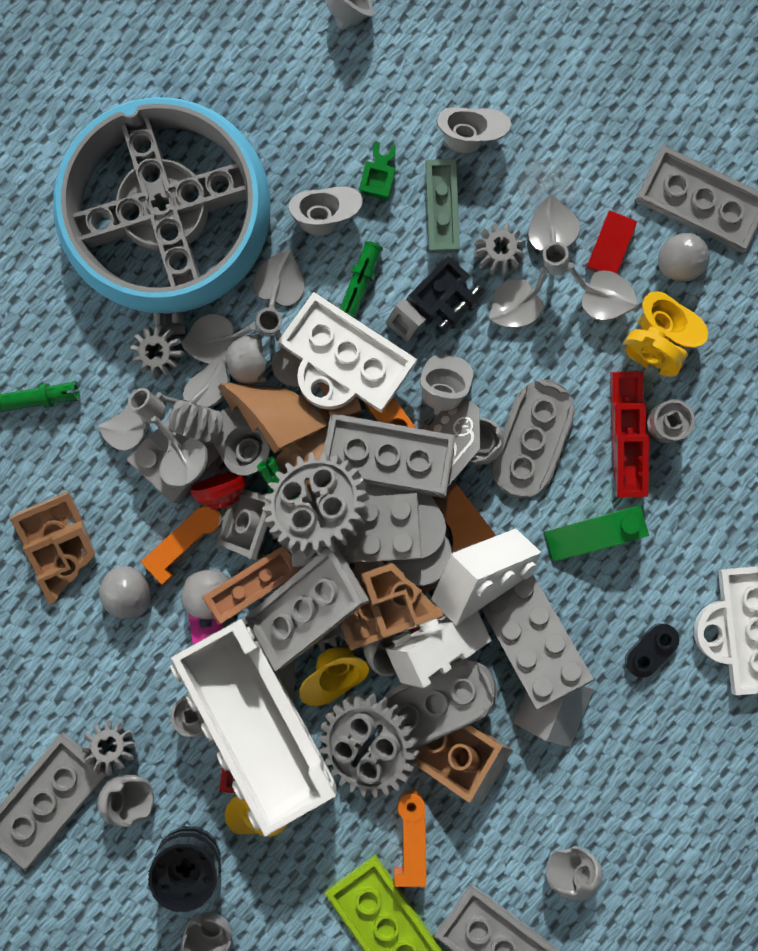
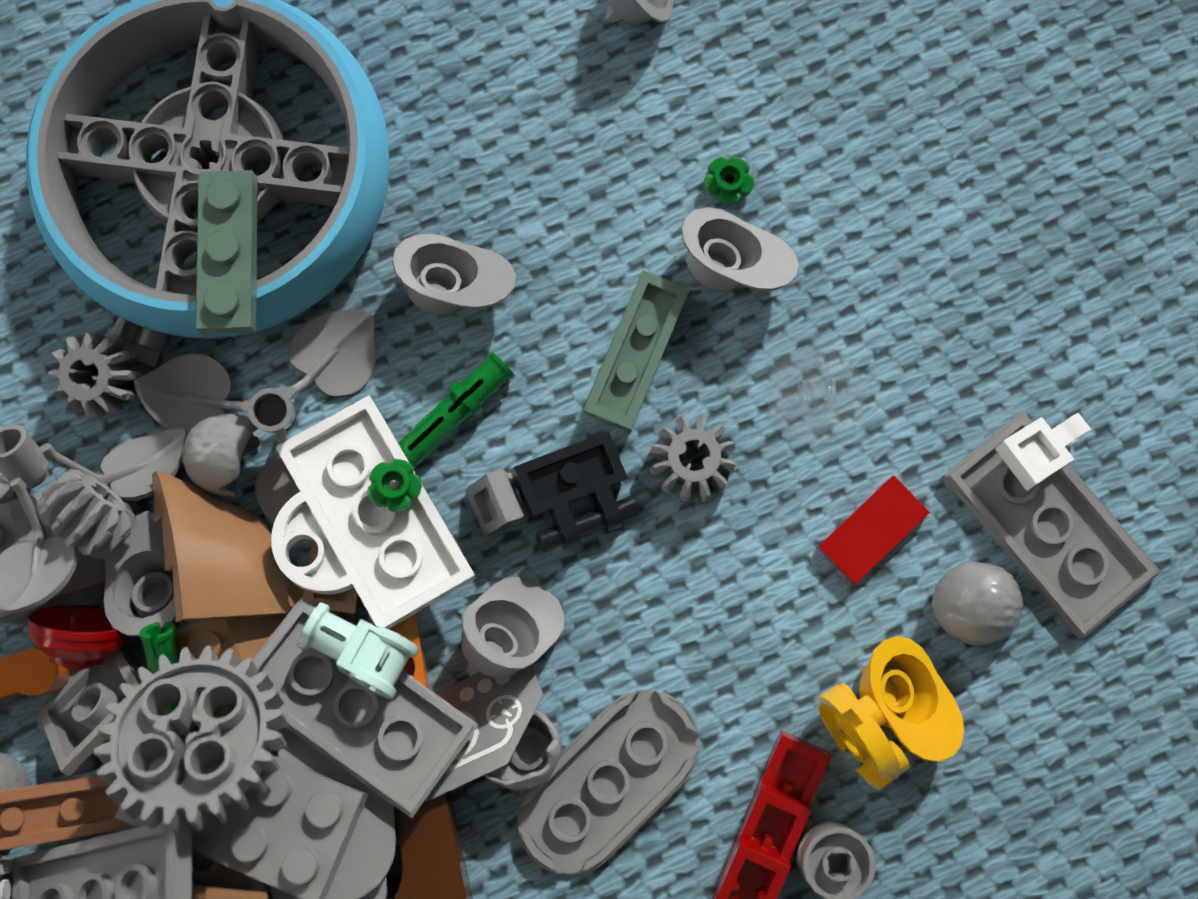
camera: 25 degrees right, 5 degrees down
(203, 246) = (227, 252): none -> sand green plate
(356, 338) = (404, 495): none -> green plate
(378, 176) = (558, 262): green plate -> none
(378, 423) = (361, 651): none -> light aqua connector
(448, 97) = (722, 191): none -> green plate
(552, 231) = (792, 462): light grey plant -> none
(682, 160) = (1041, 451): none -> white plate

